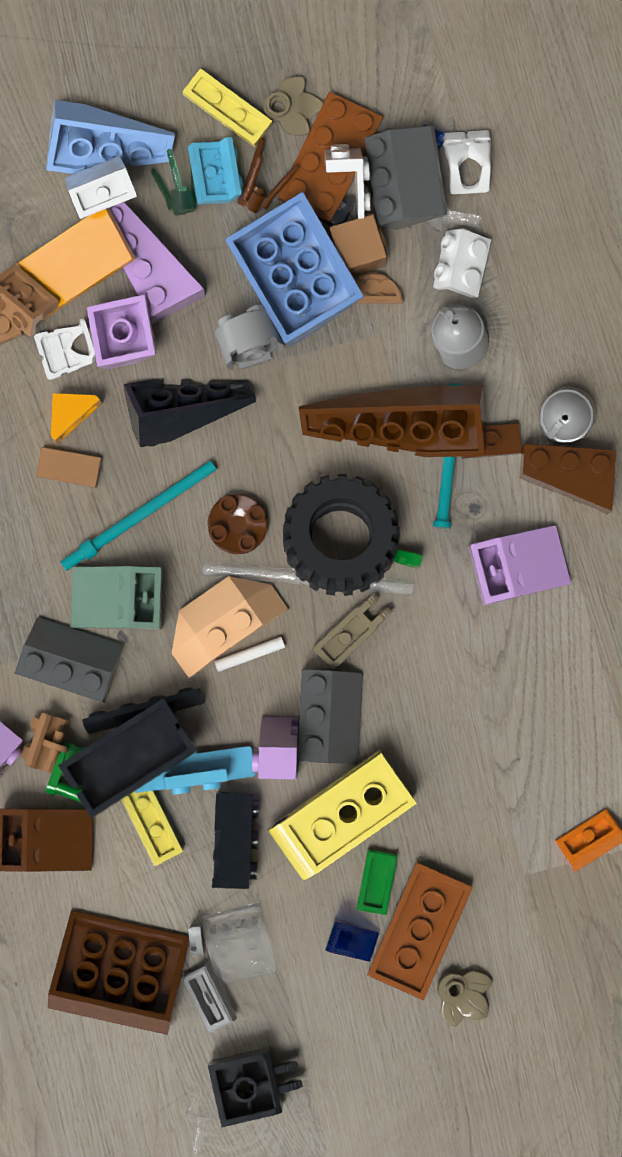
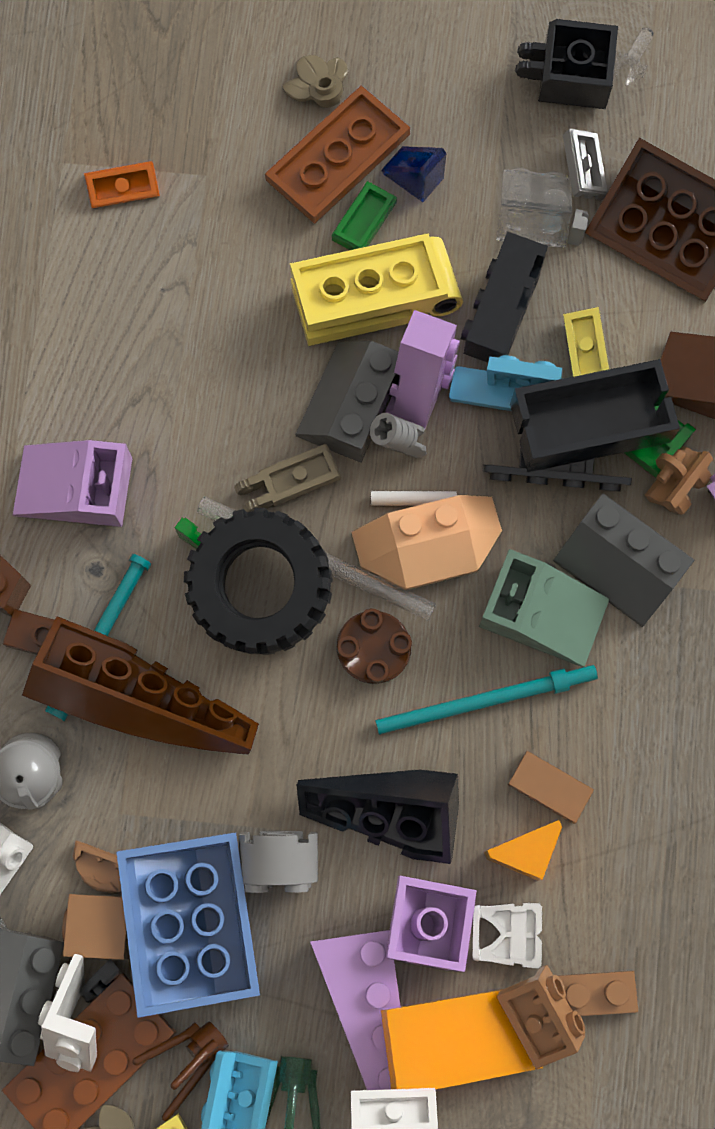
camera: 160 degrees left, 10 degrees down
(278, 694) = (397, 435): none -> light grey hinge

